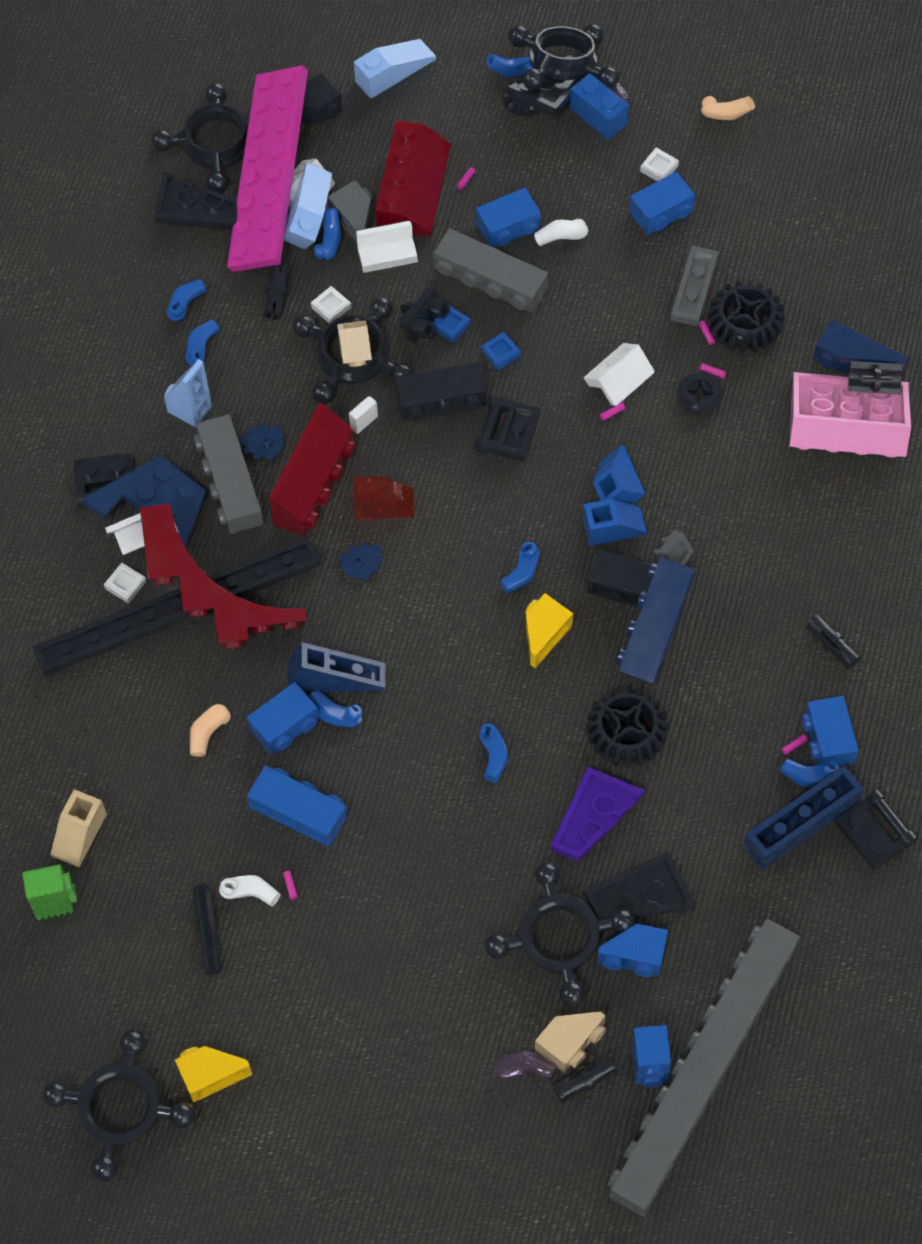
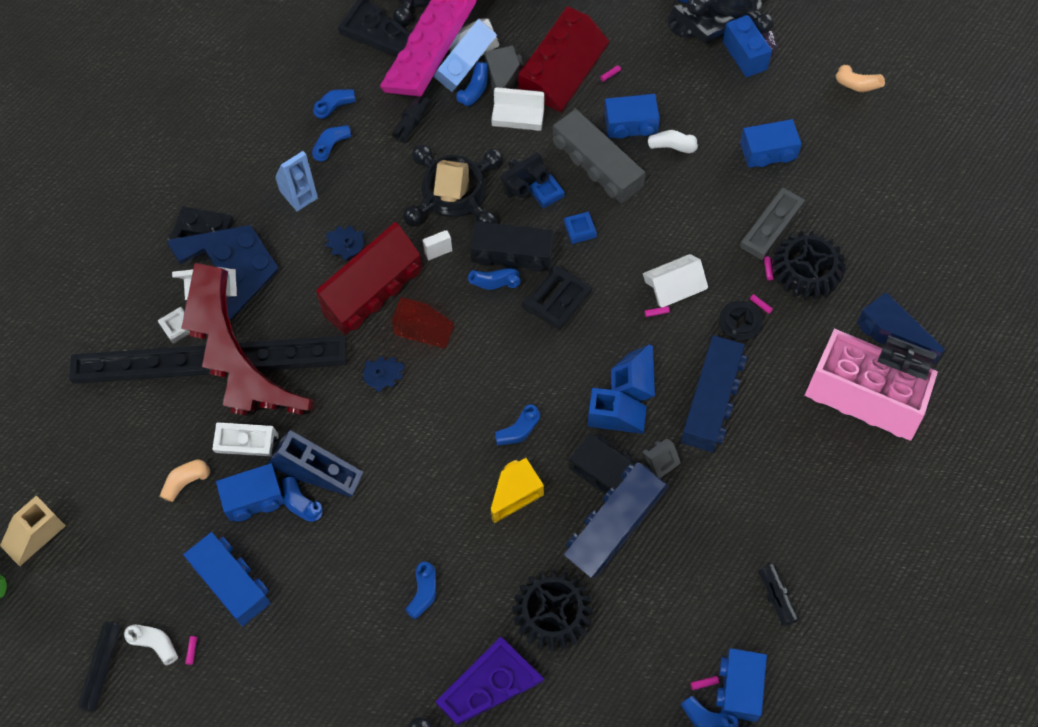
camera: 20 degrees right, 0 degrees up
(229, 474) = (302, 260): dark grey brick -> none
(255, 668) = (244, 439): none -> white panel
(330, 304) = (452, 143): white tile -> none
(437, 430) = (495, 279): none -> blue arm
(659, 165) = (781, 110): white tile -> none
(700, 473) = (713, 393): none -> dark blue brick

